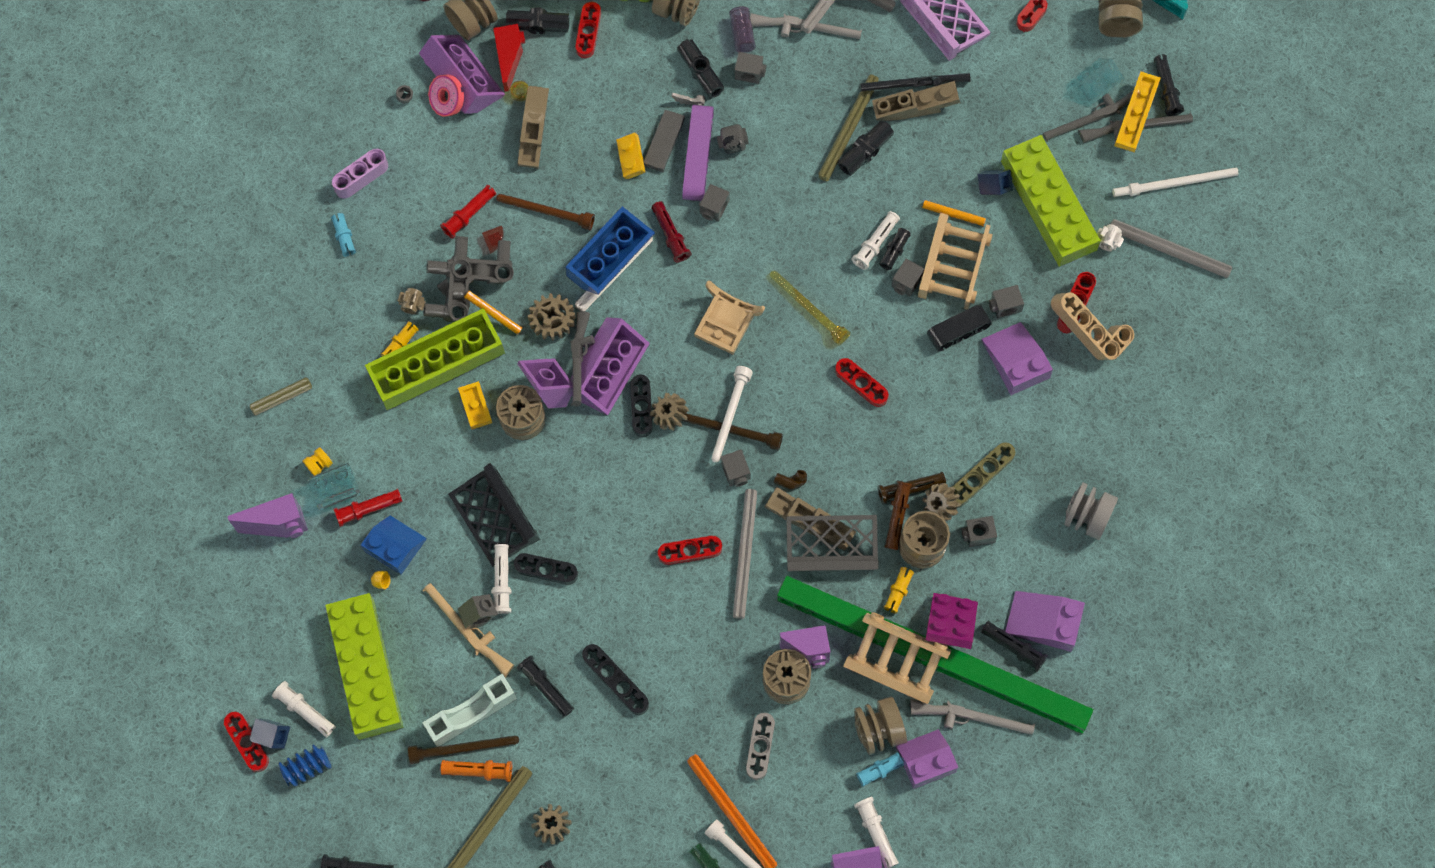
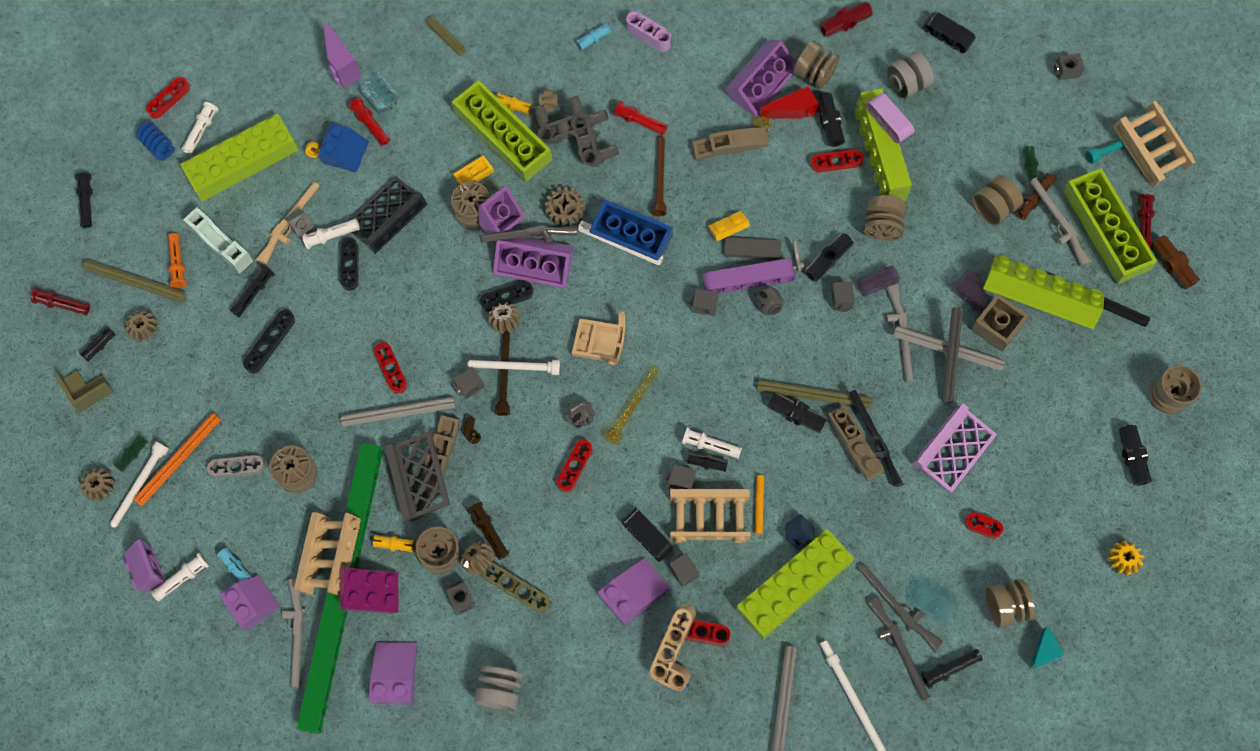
camera: 75 degrees right, 0 degrees up
(269, 733) = (175, 110): panel -> none
(321, 458) = (395, 75): yellow wheel -> none
(400, 91) = (729, 38): dark grey hinge -> none
(418, 754) = (179, 214): dark brown piece -> none
(437, 95) = (733, 70): tile -> none
(492, 237) = (624, 144): clear red tile -> none
(493, 312) = (554, 160): light orange bar -> none
(673, 239) = (662, 282): dark red pin -> none
(806, 360) = (580, 413): none -> dark grey head
(810, 642) = (321, 479): medium lavender slope -> none
(880, 725) = (265, 554): dark tan wheel -> none
(898, 514) = (477, 521): reddish brown pin -> none
(1023, 651) = (358, 661): black pin -> none
(1110, 237) = (774, 647): white gear -> none
(1137, 112) = (911, 643): yellow plate -> none

